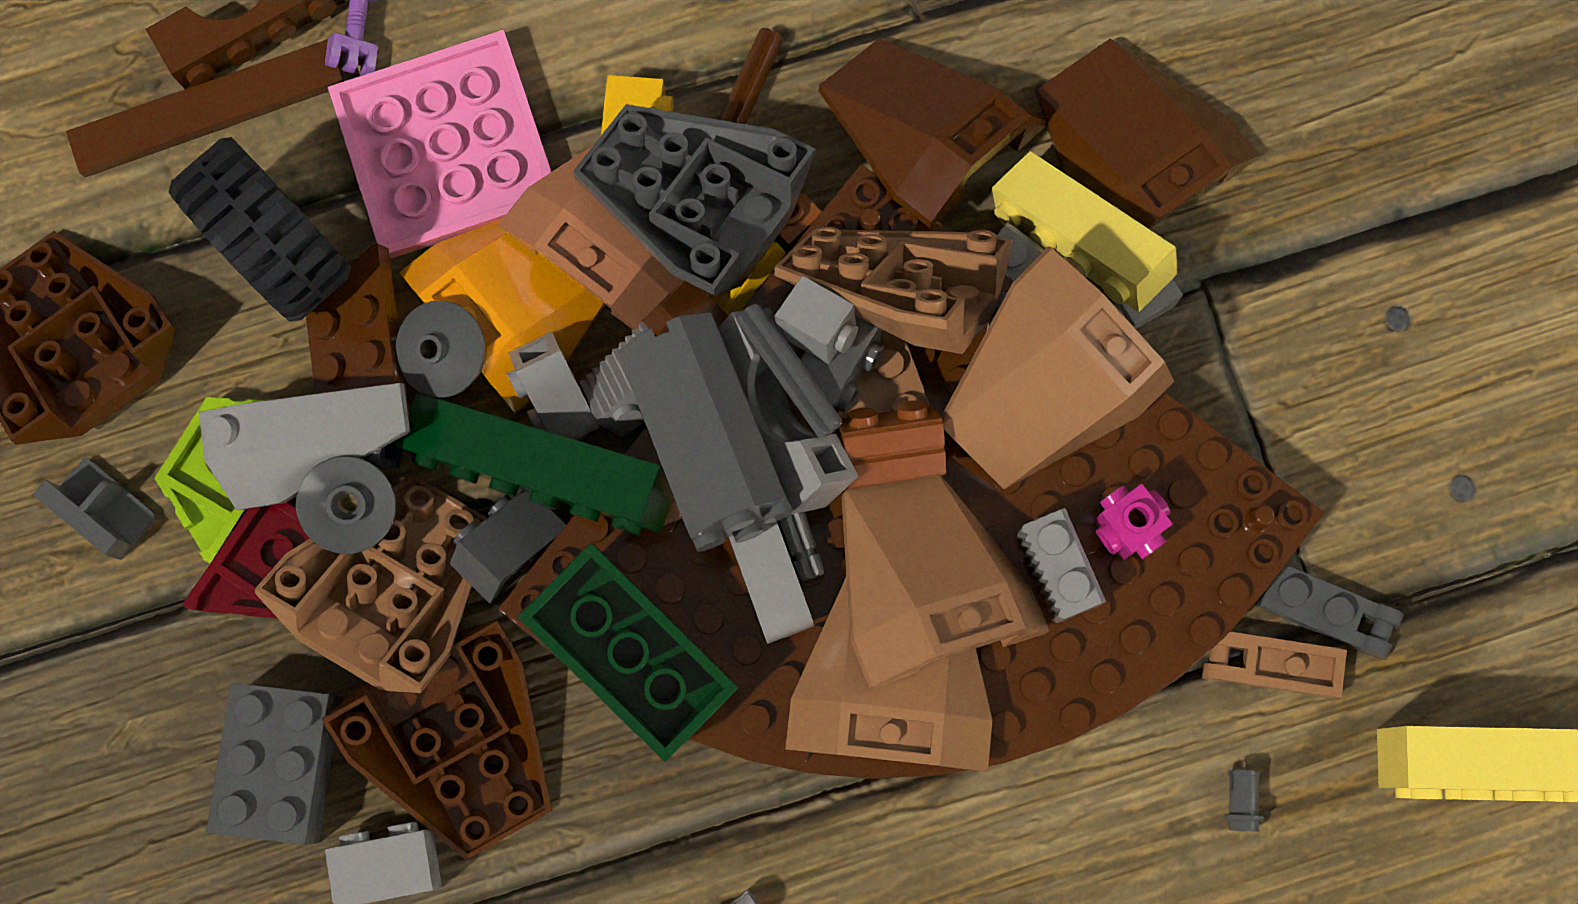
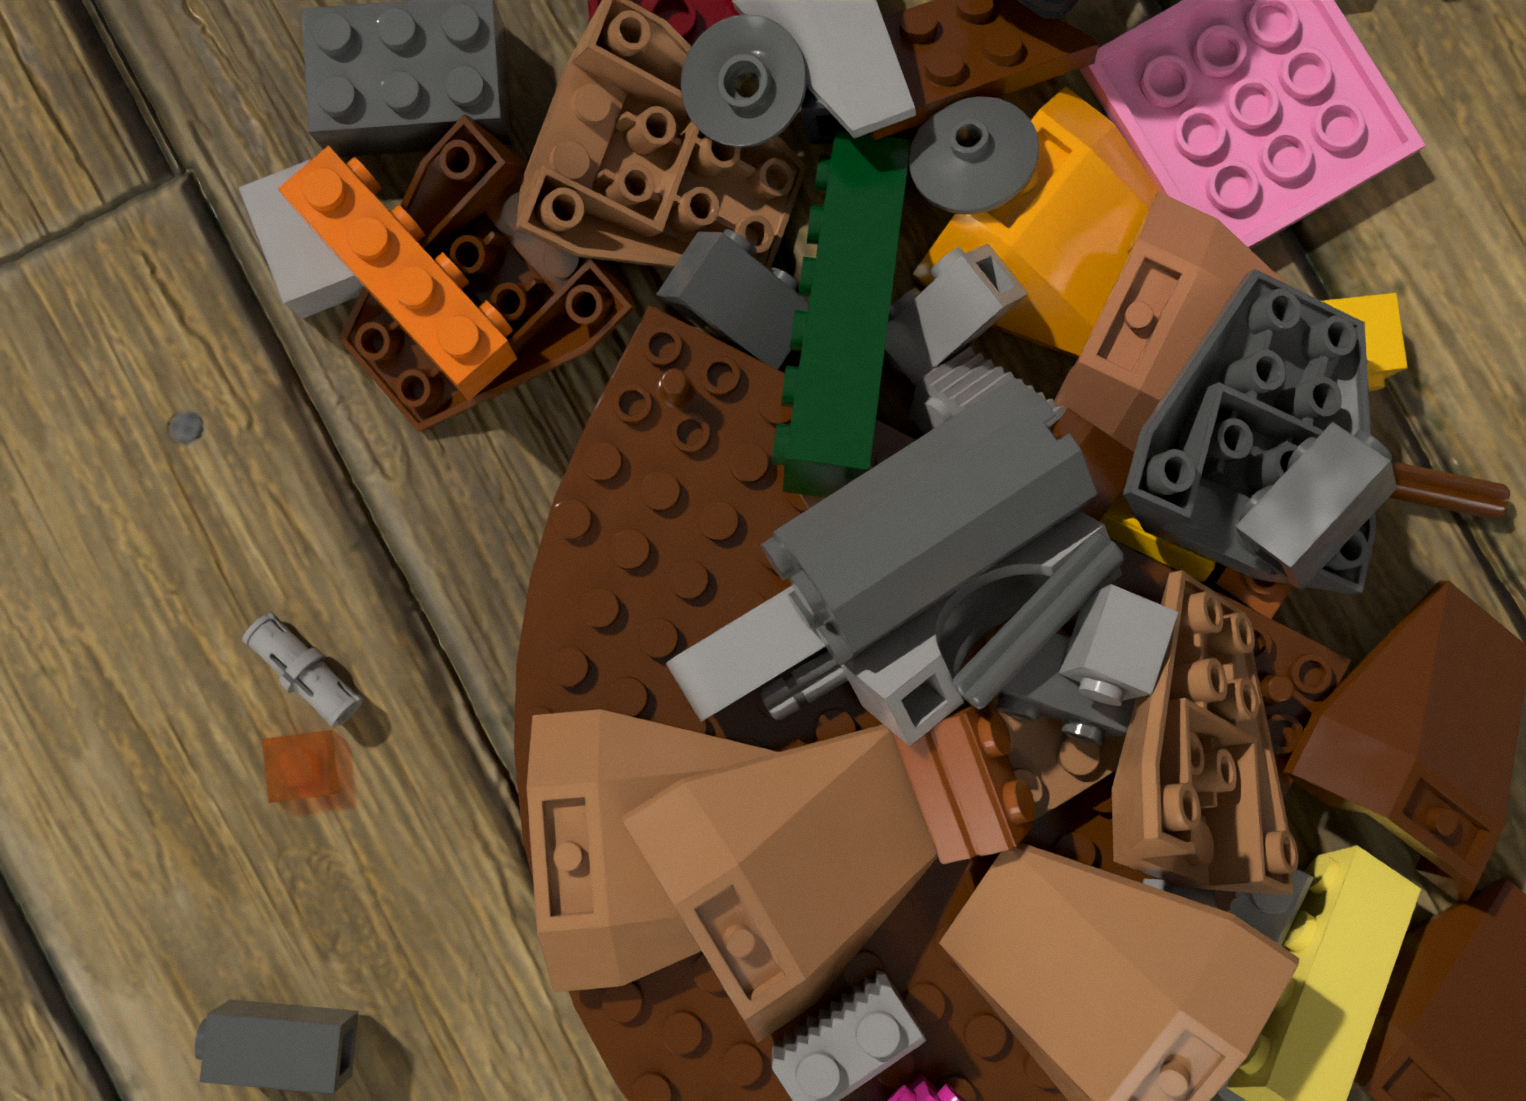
camera: 75 degrees right, 5 degrees up
(432, 790) = (394, 268): none -> orange brick
(627, 651) = (613, 480): dark green brick -> none
(747, 166) = (1317, 503): none -> dark grey brick

